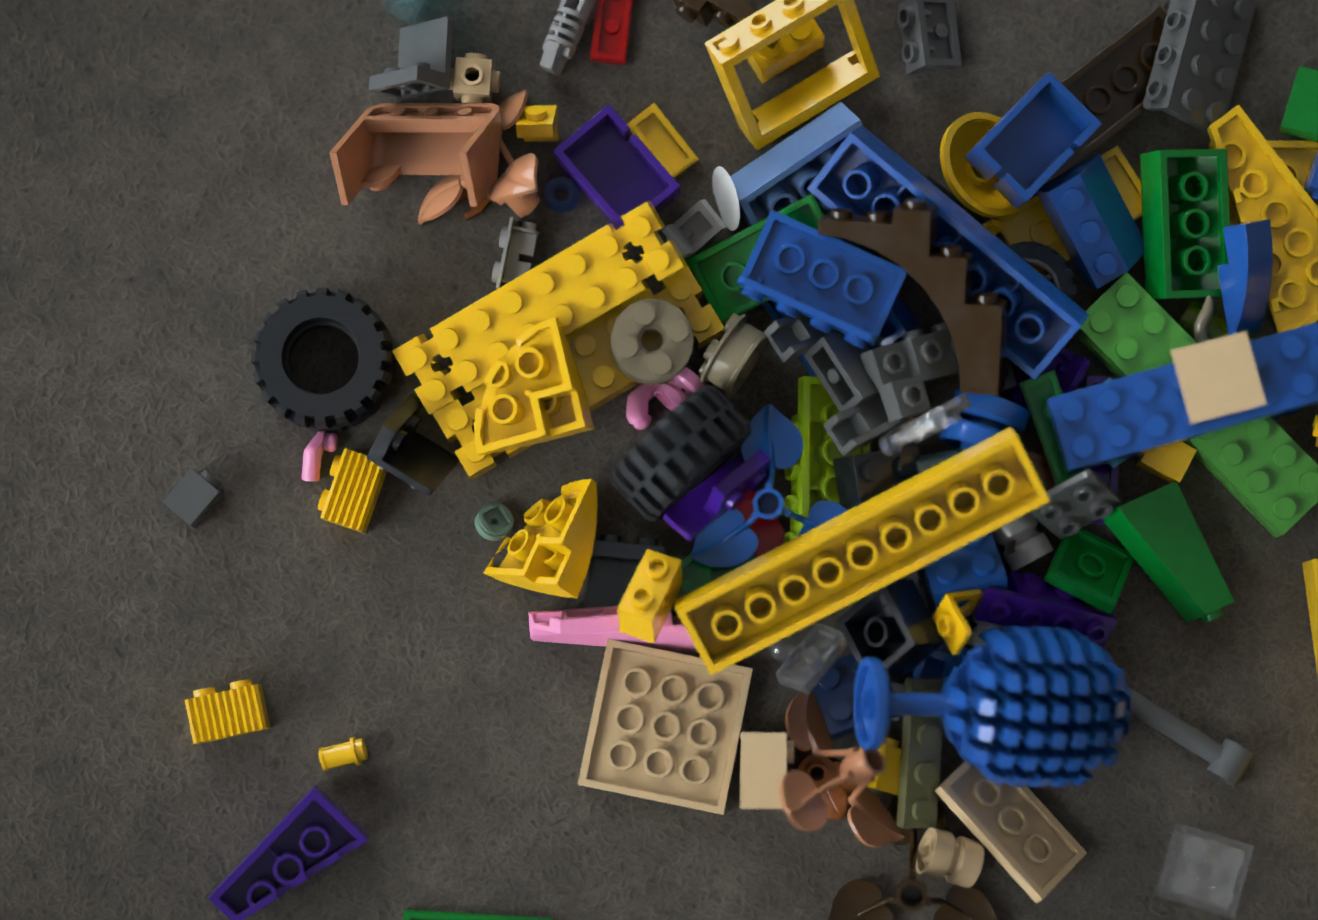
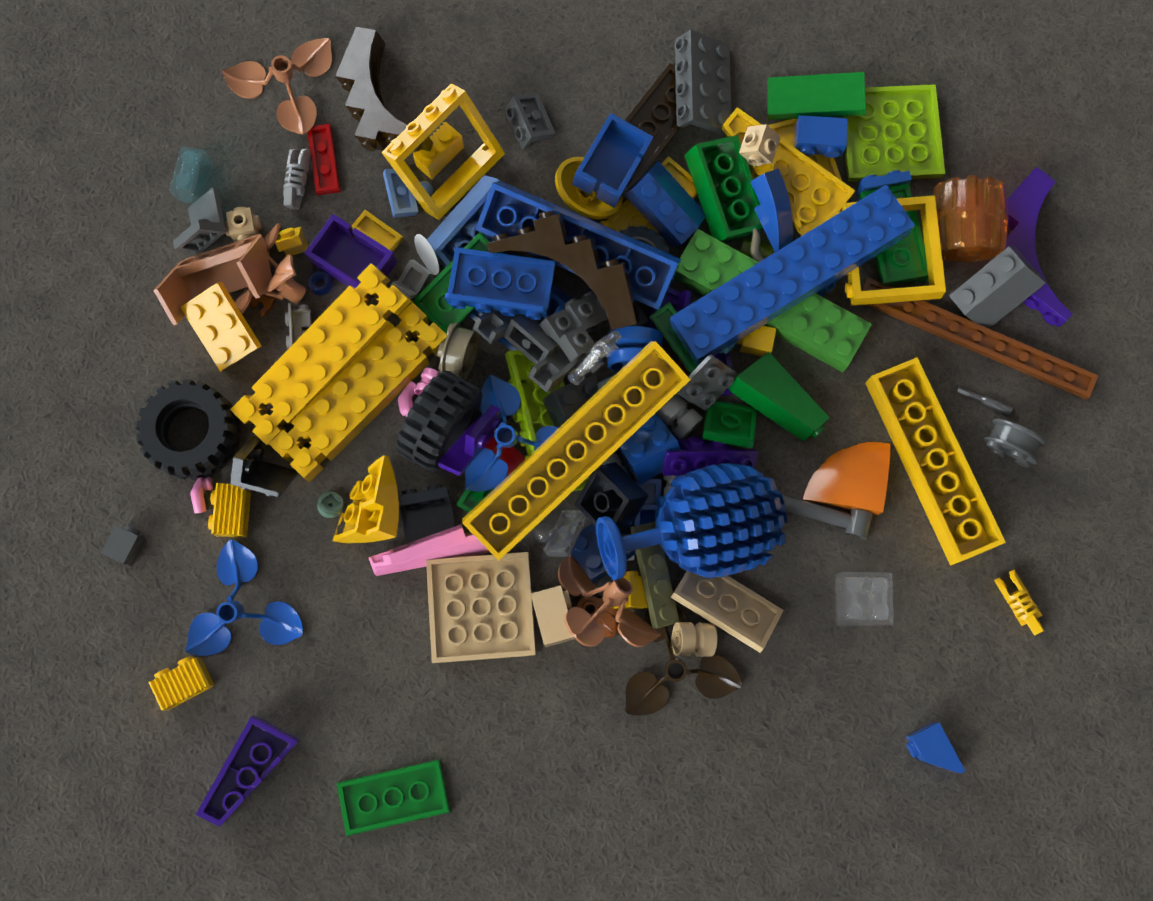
camera: 20 degrees left, 5 degrees down
(281, 656) = (208, 630): none -> blue plant
(343, 754) = (268, 688): yellow pin -> none
(407, 223) = (220, 326): none -> yellow plate
(532, 393) = (330, 410): yellow brick -> none
(650, 596) = (444, 520): yellow brick -> none
(657, 318) = (396, 339): dark tan wheel -> none
(710, 103) = (400, 198): none -> medium blue plate
(951, 620) = (649, 479): yellow bracket -> none
(1218, 377) = (776, 270): tan tile -> none
(1242, 695) = (852, 478): none -> orange brick
(1253, 176) = (759, 145): none -> tan brick

